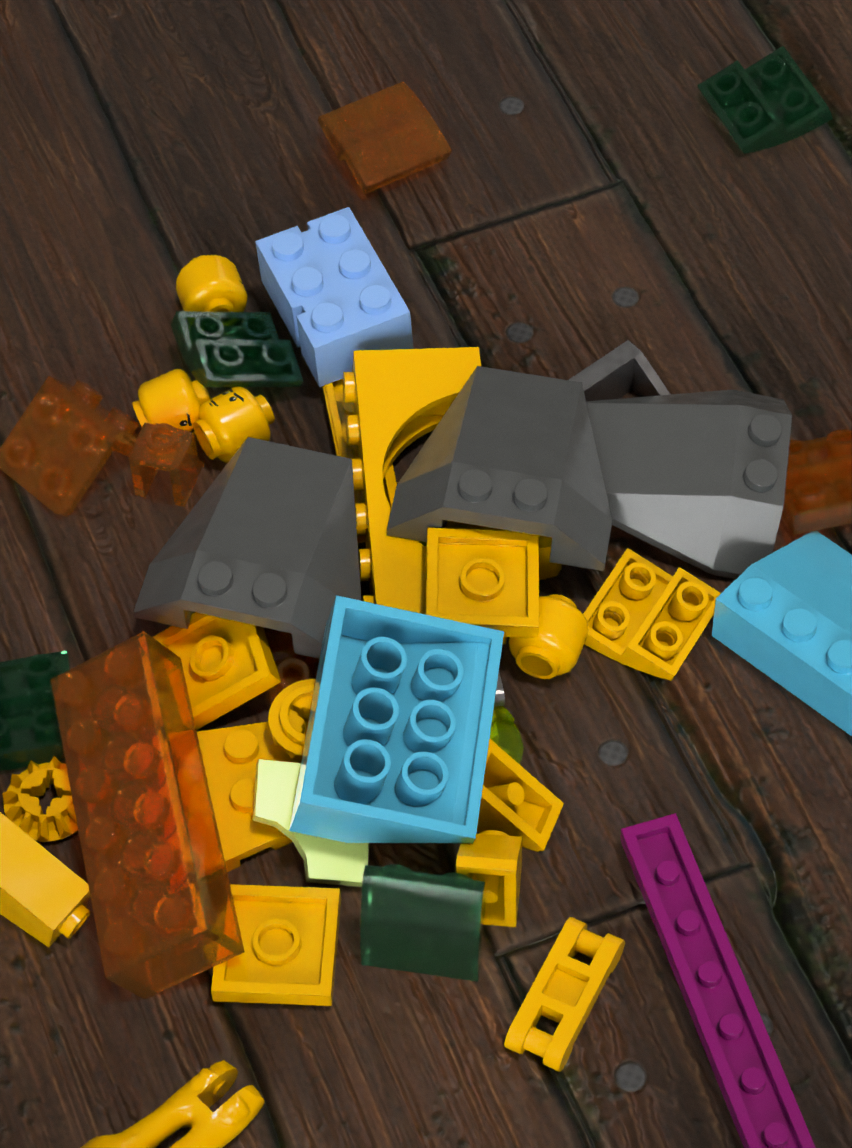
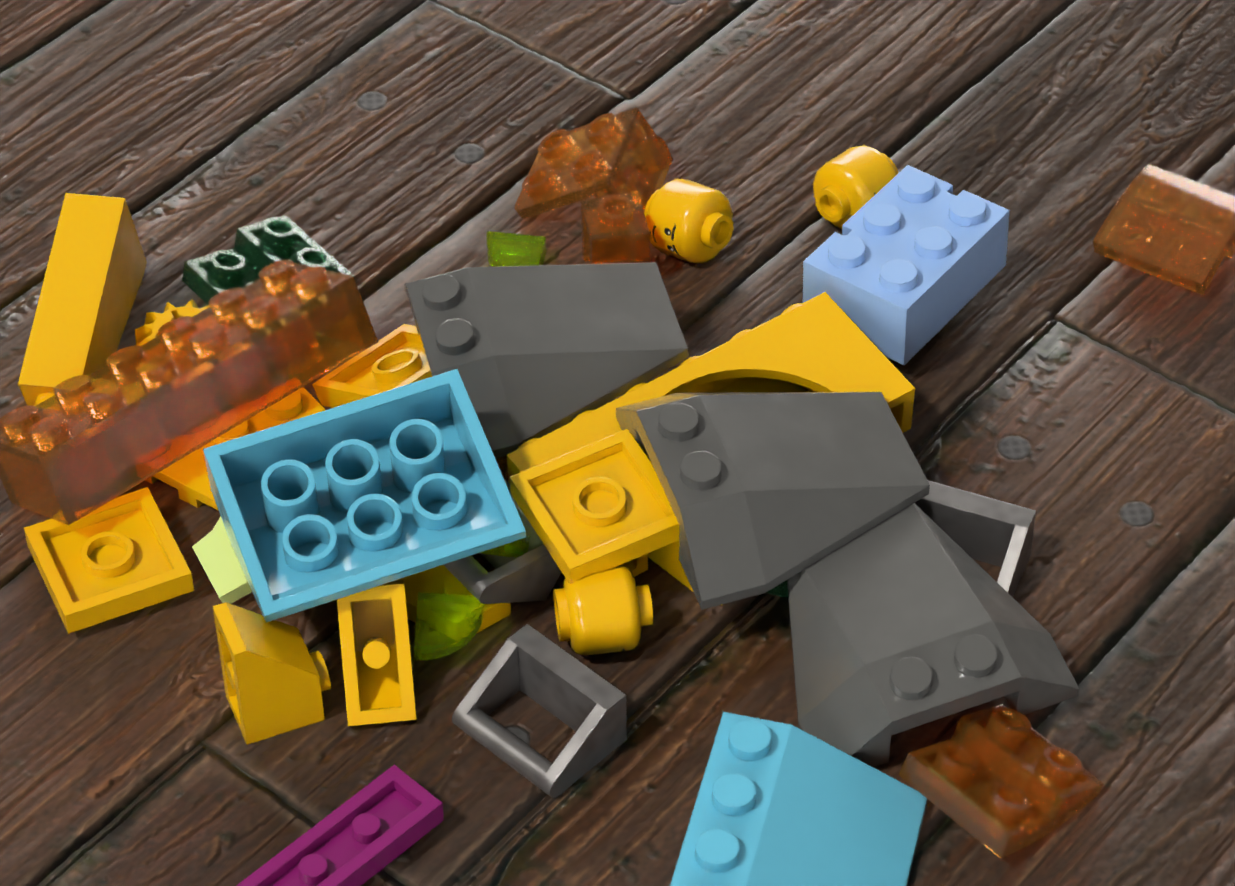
camera: 60 degrees right, 10 degrees down
(119, 535) = (515, 249): none -> clear neon green tile
(229, 420) = (699, 270): yellow head -> none
(235, 349) = (779, 225): clear green slope -> none
(422, 922) = (173, 637): clear green slope -> none
(564, 993) = (177, 803): yellow plate -> none
(612, 692) = (562, 687): none -> flat silver tile
(648, 616) = (689, 681): yellow slope -> none

